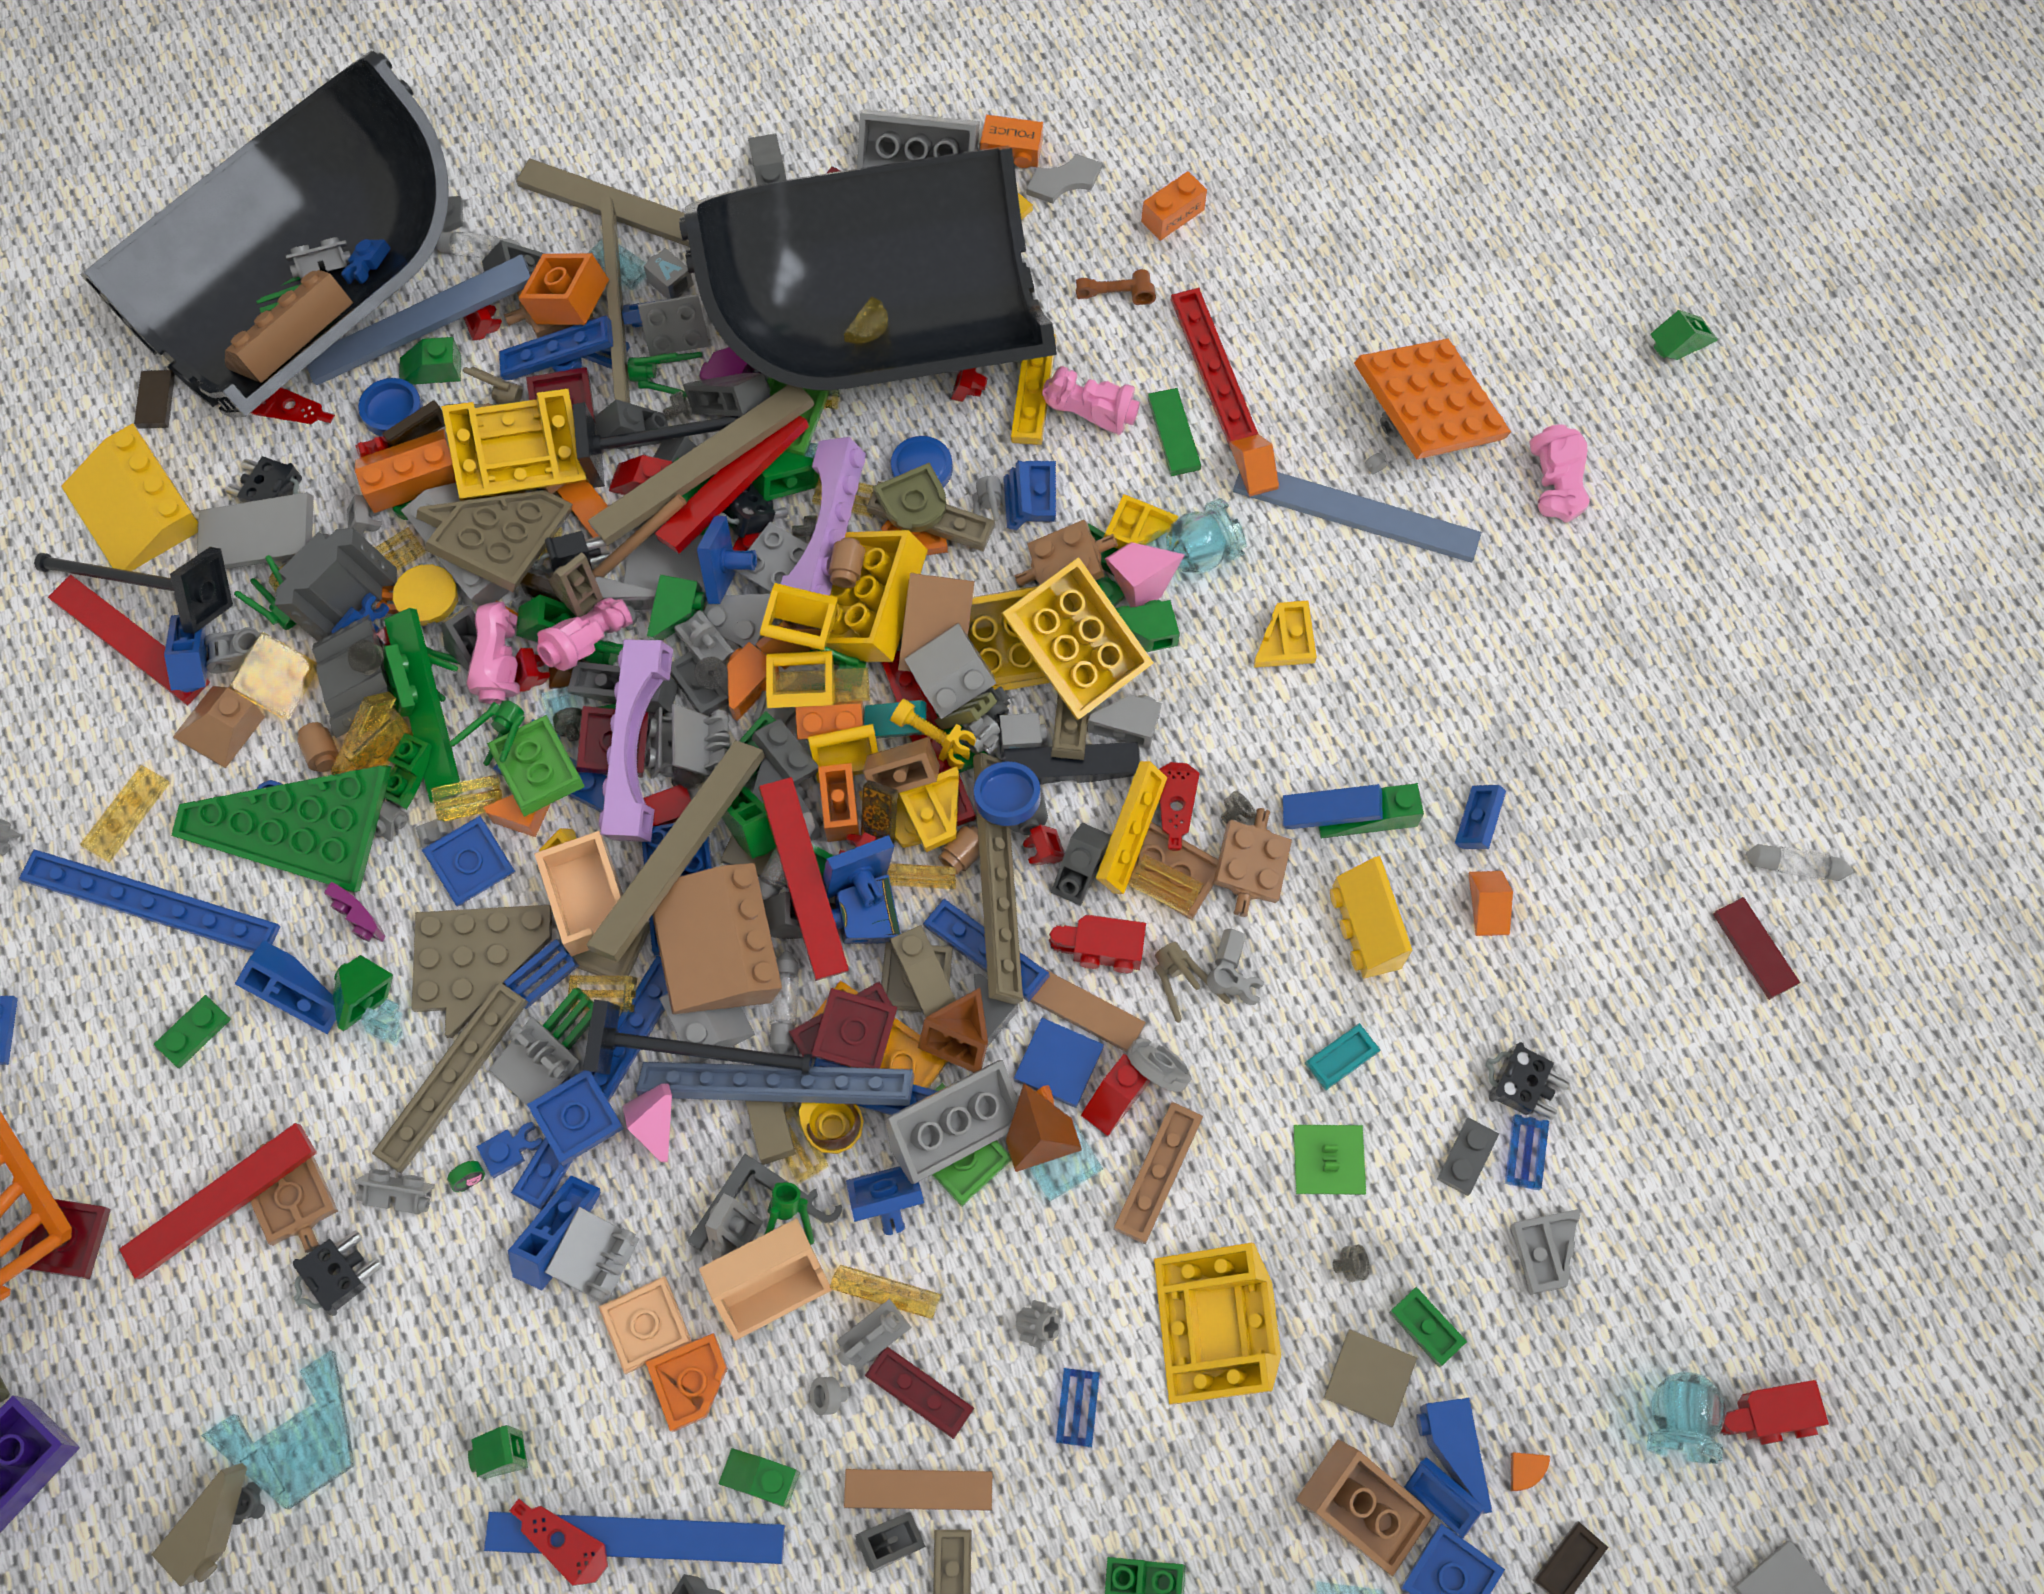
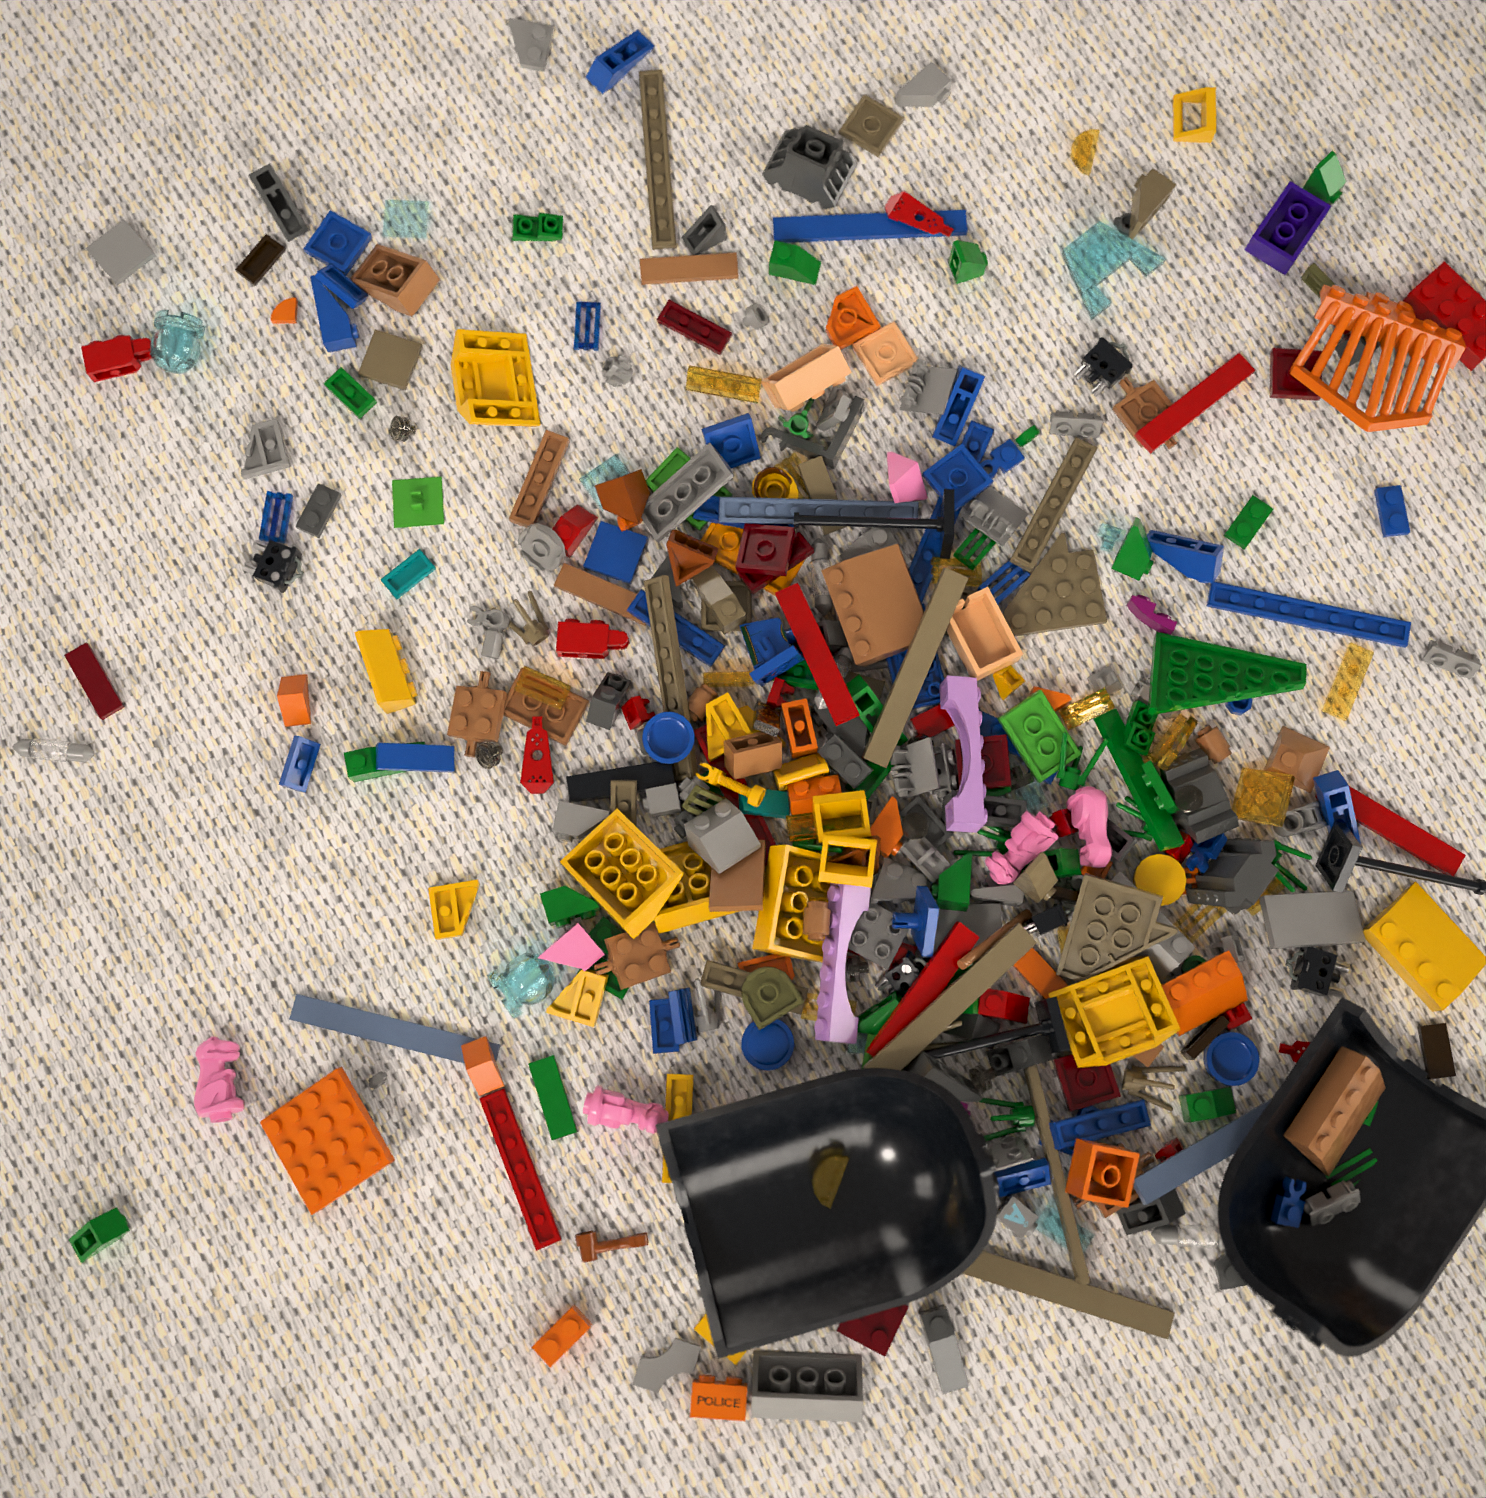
camera: 175 degrees right, 10 degrees up
(468, 861) = (1075, 663): blue tile -> none
(872, 1335) = (730, 354): light grey hinge -> none
(1131, 827) = (570, 726): yellow plate -> none

